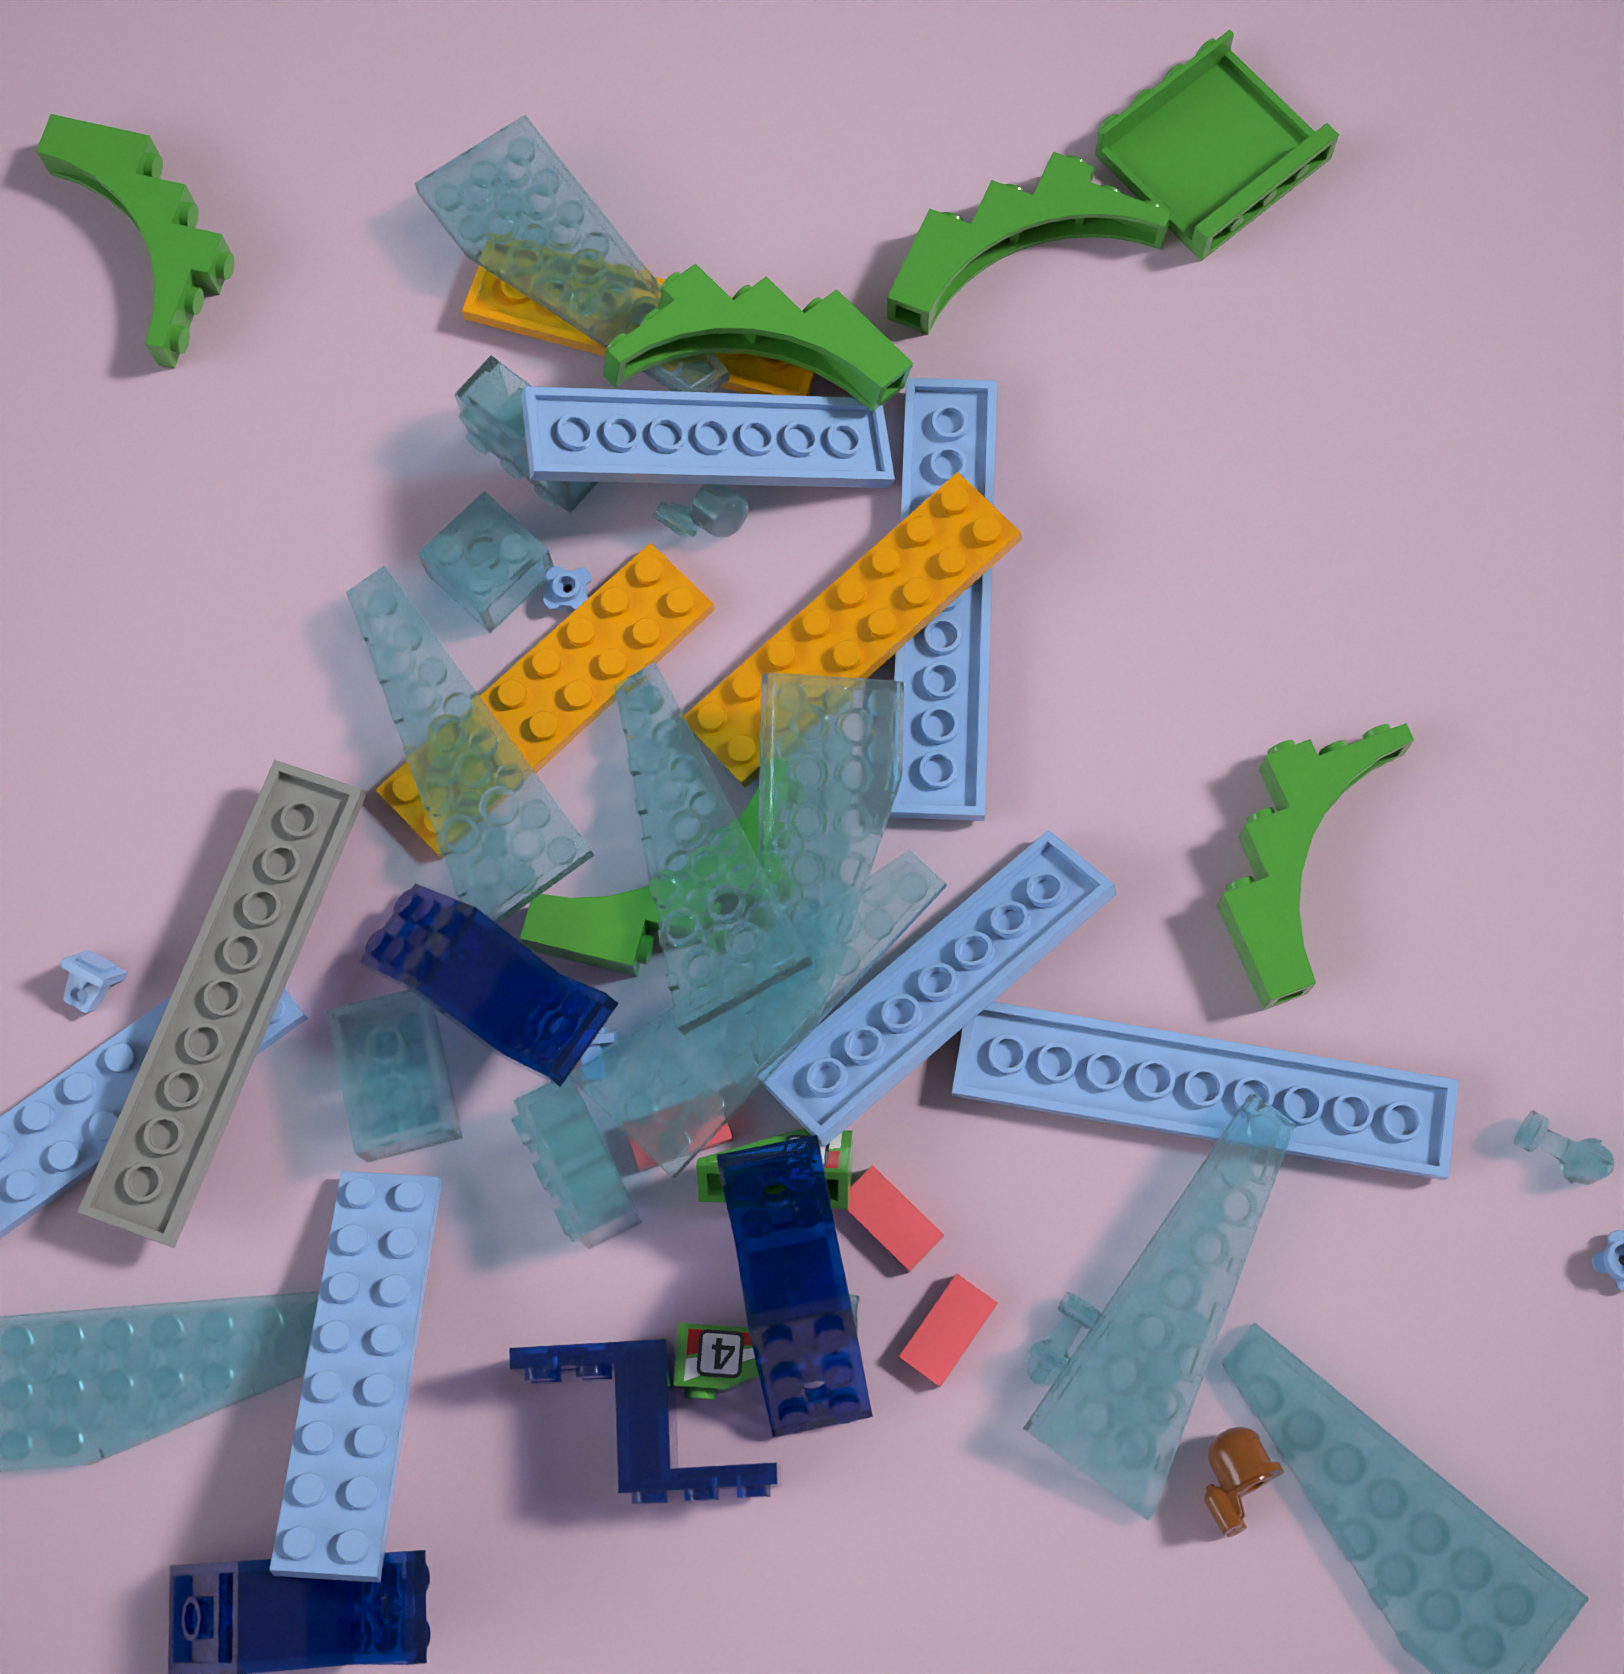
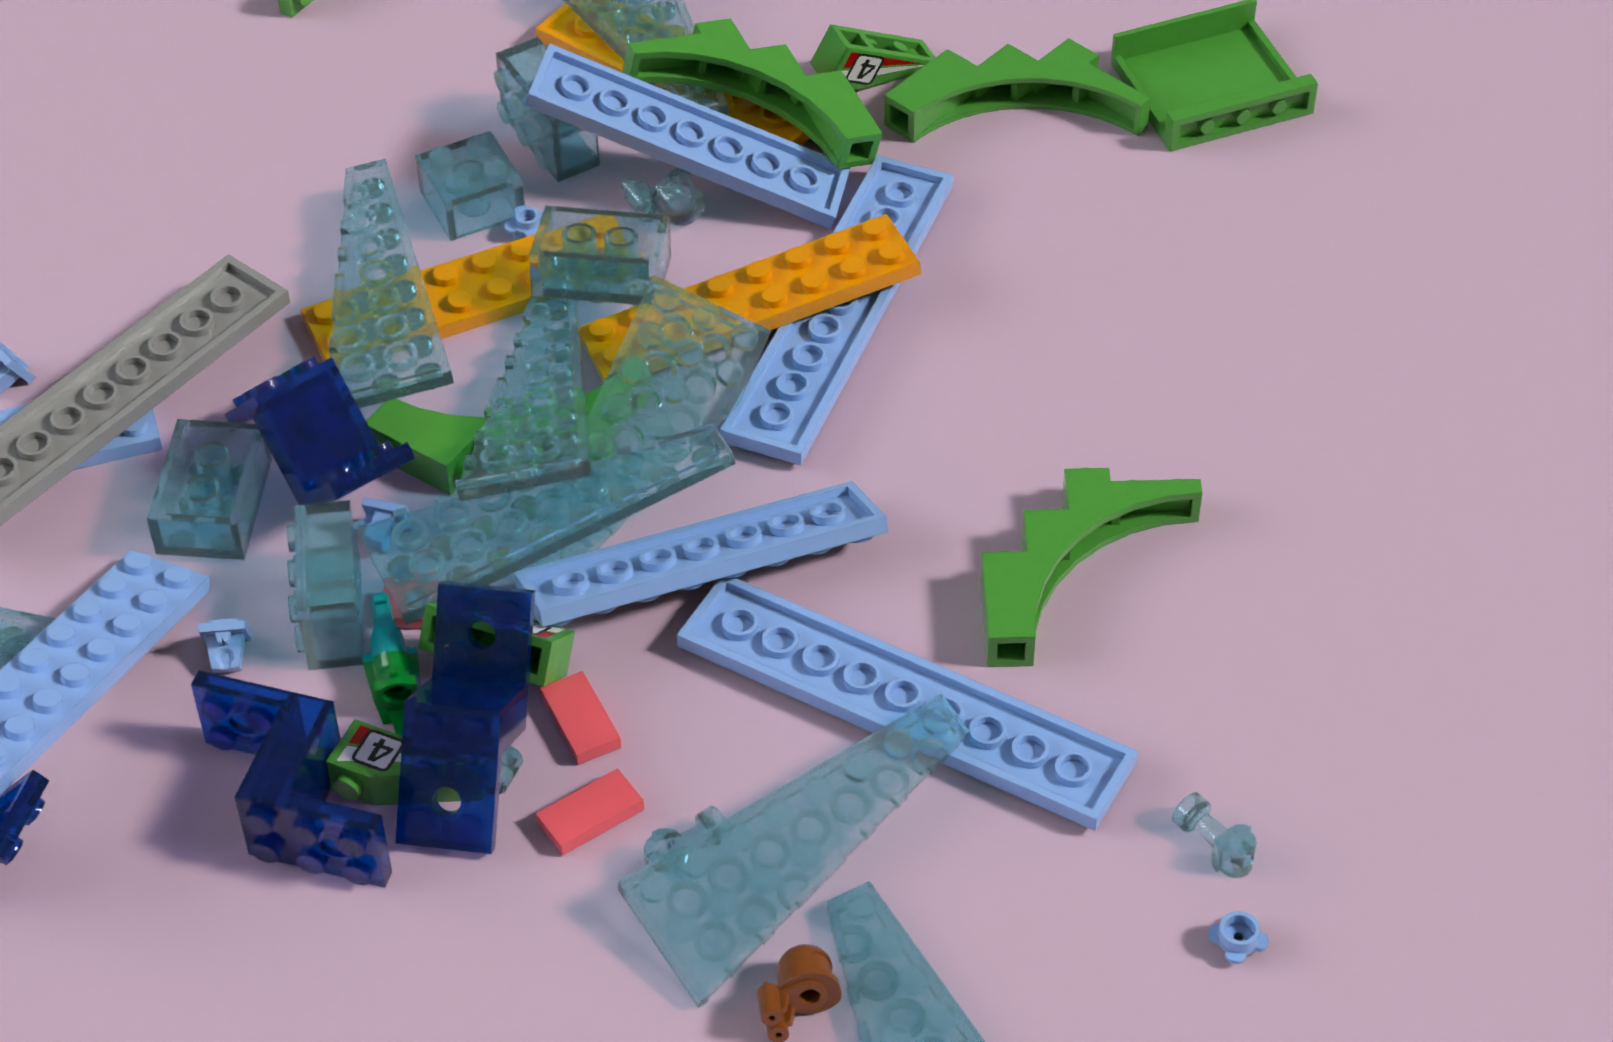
camera: 15 degrees right, 25 degrees down
(494, 1257) = (225, 643): none -> light blue brick
(683, 637) = (598, 254): none -> clear light blue brick
(684, 1237) = (390, 664): none -> green animal
(844, 238) = (869, 56): none -> bright green slope

